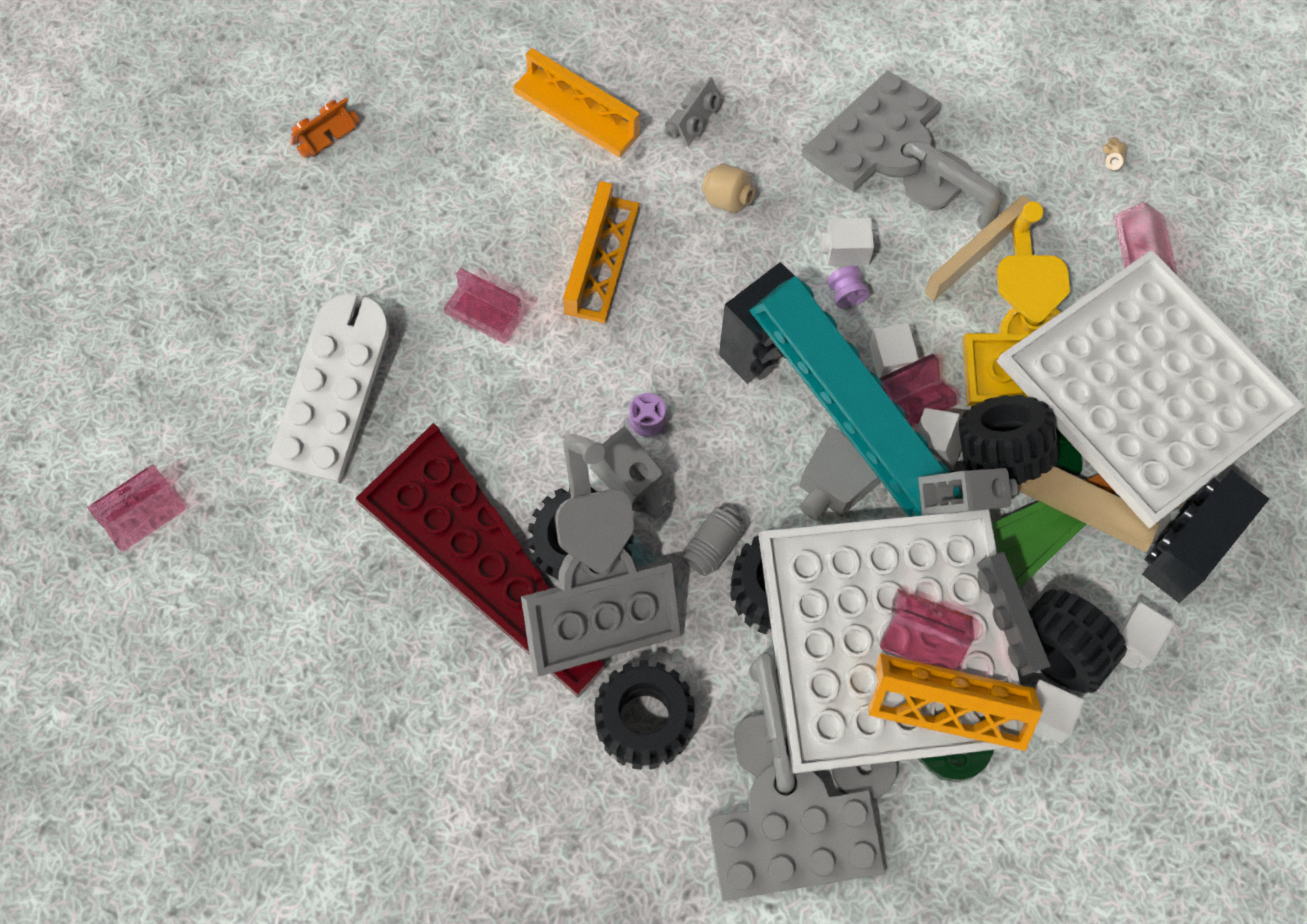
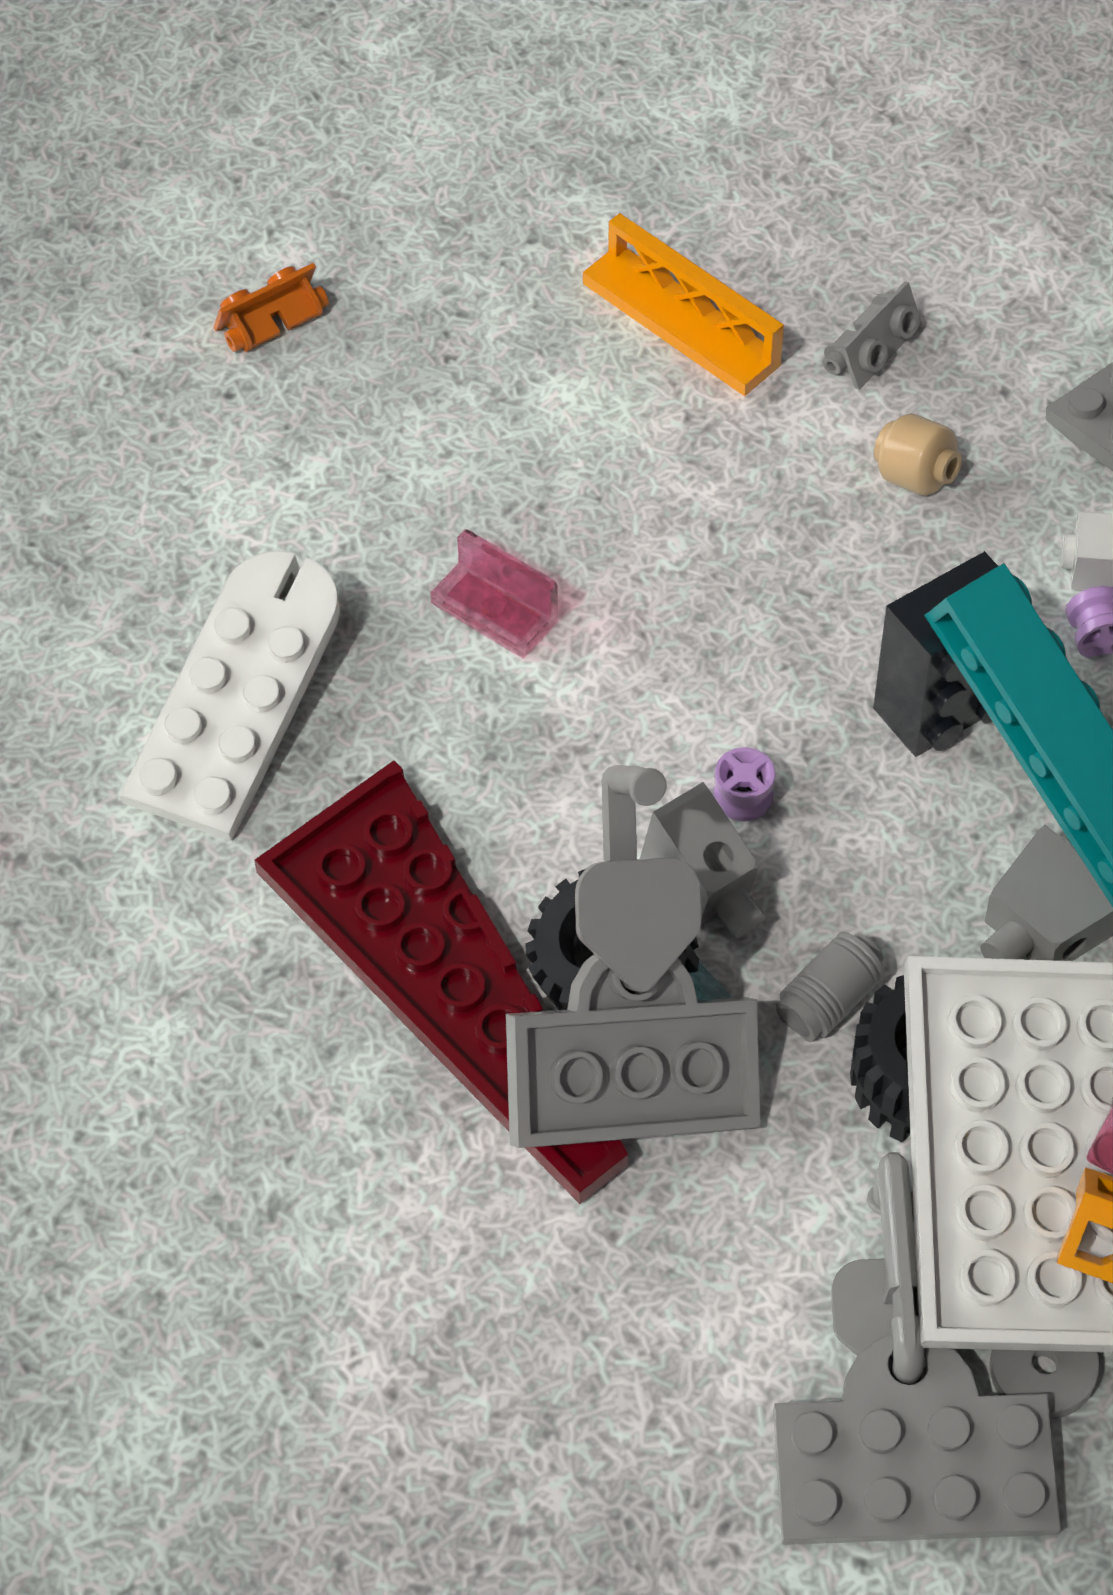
camera: 10 degrees right, 10 degrees down
(588, 249) = (677, 524): light orange fence -> none
(636, 747) = (674, 1281): black tyre -> none

